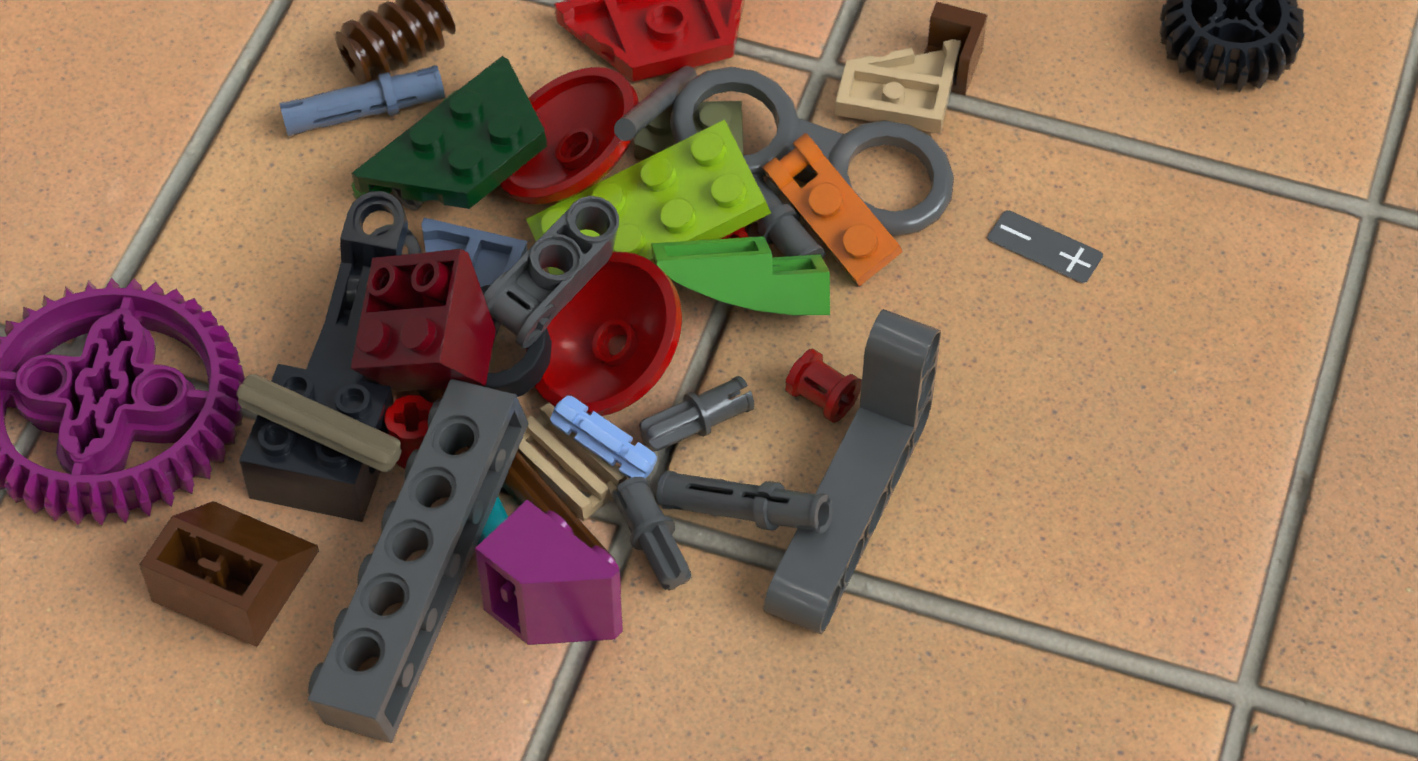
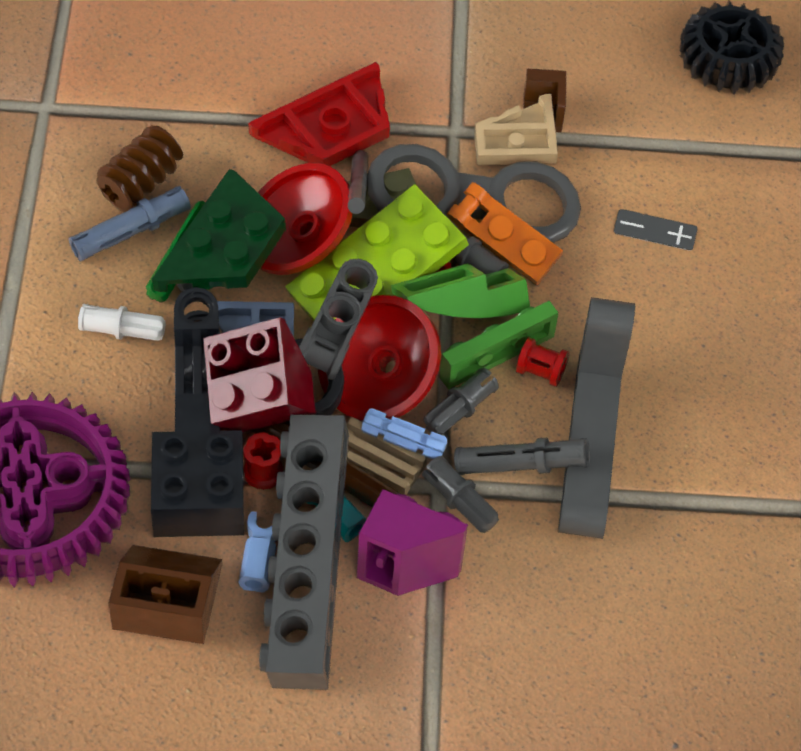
camera: 20 degrees left, 0 degrees up
(297, 218) = (121, 322): none -> white axle
(319, 422) = (205, 468): dark tan axle -> none
(360, 544) = (256, 556): none -> light blue bar
(771, 348) = (497, 344): none -> bright green plate

